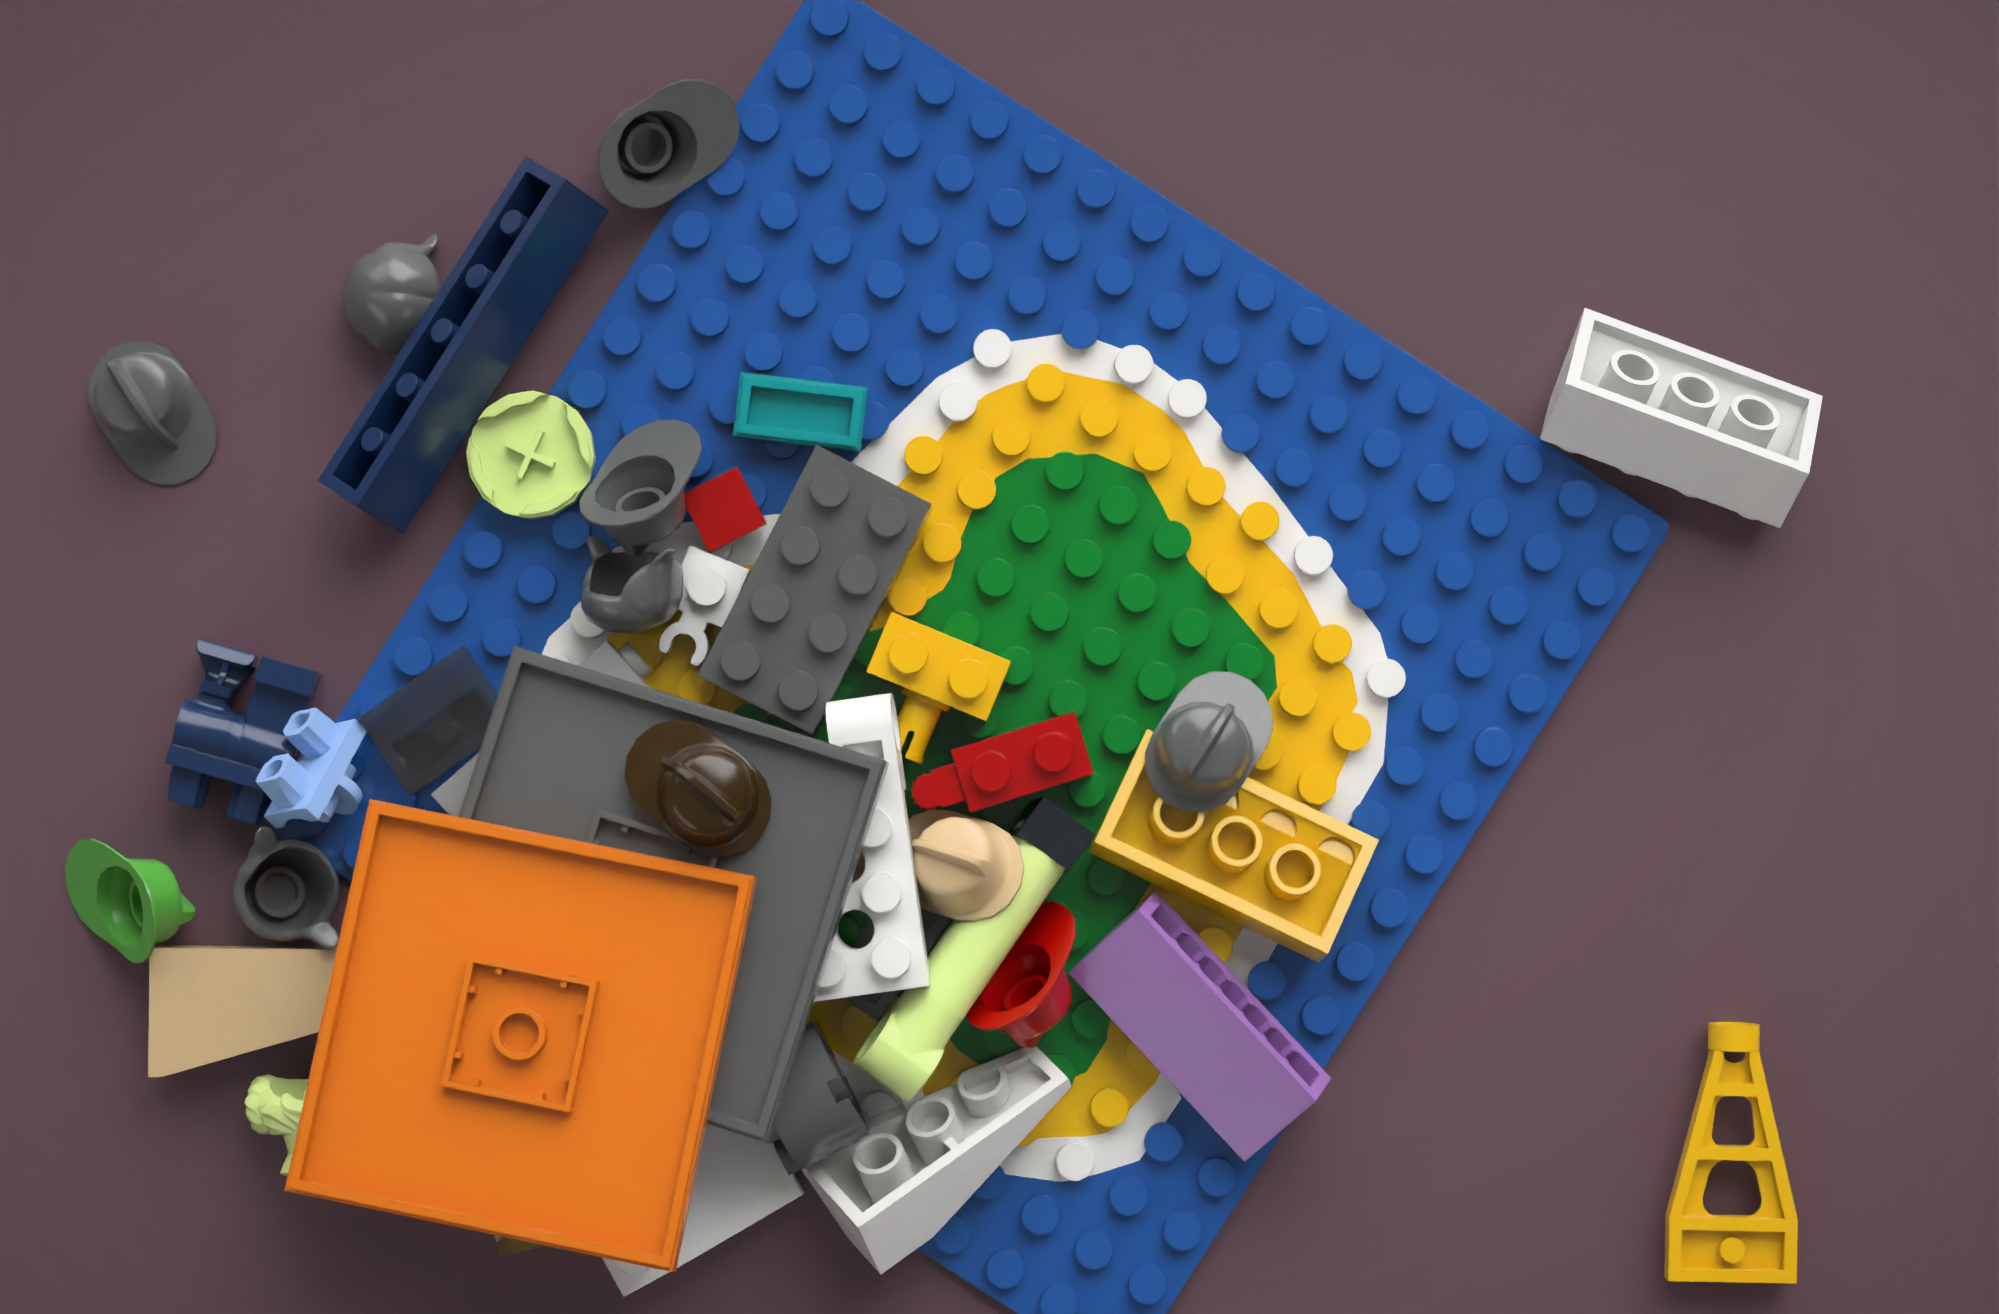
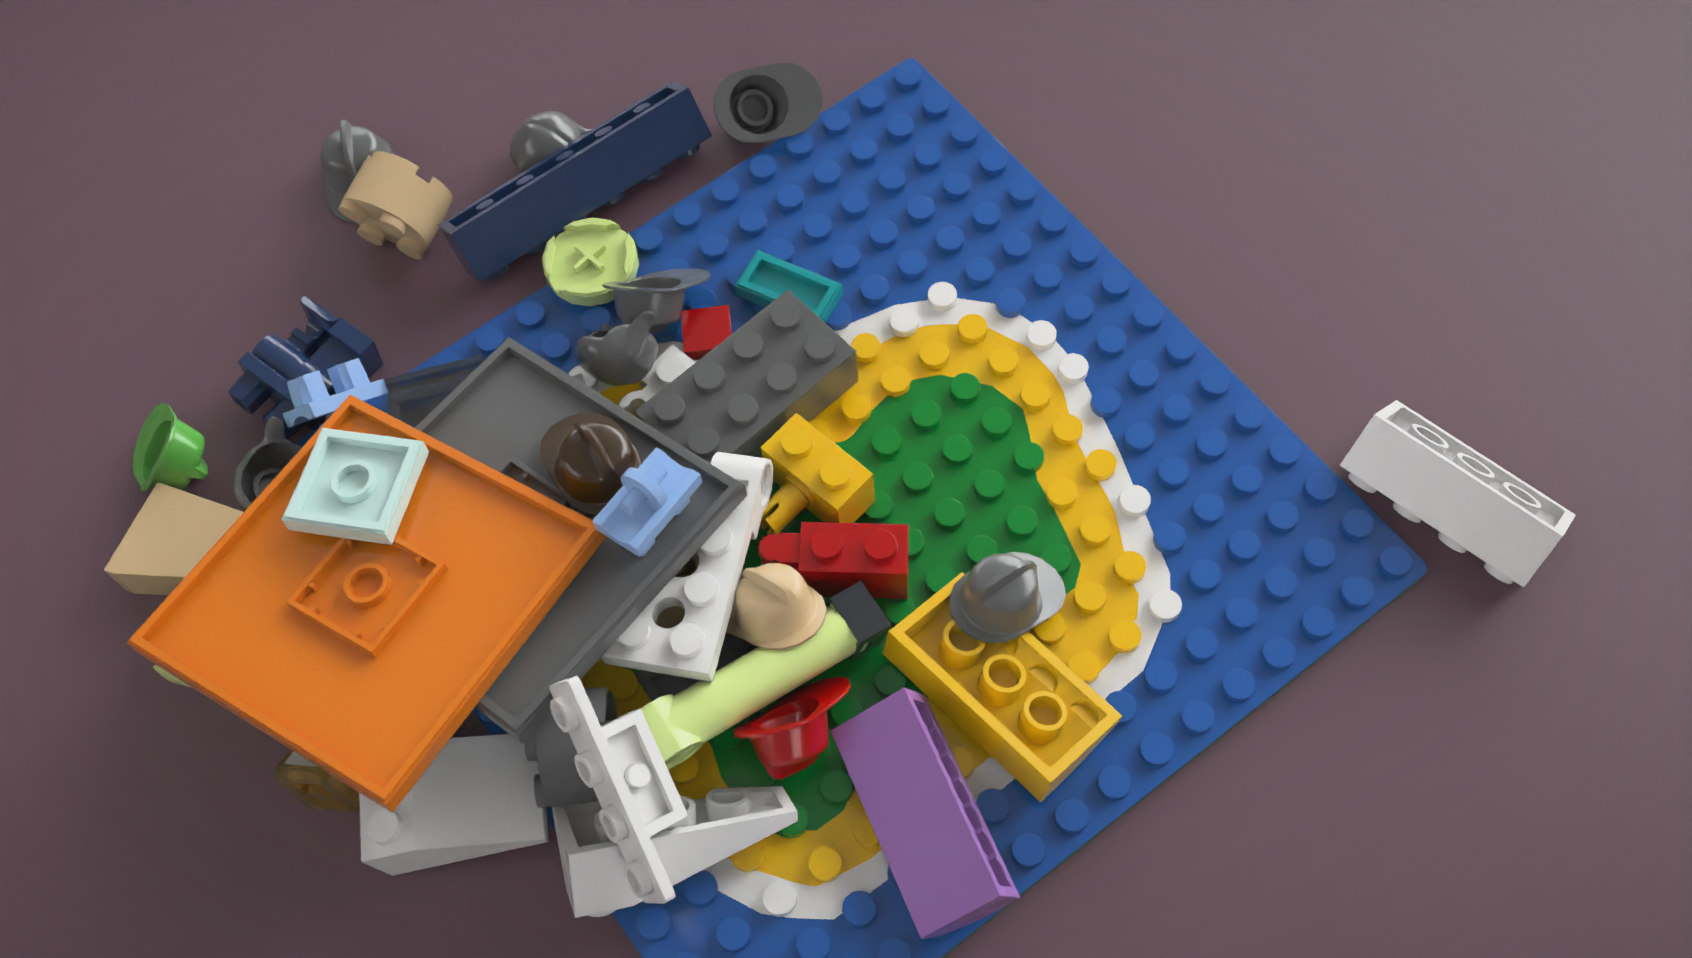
camera: 25 degrees right, 25 degrees down
(245, 464) = (396, 204): none -> tan brick
(448, 922) = (356, 486): none -> light aqua tile
(796, 835) = (647, 502): none -> light blue hips
(895, 1134) = (628, 781): none -> white bracket

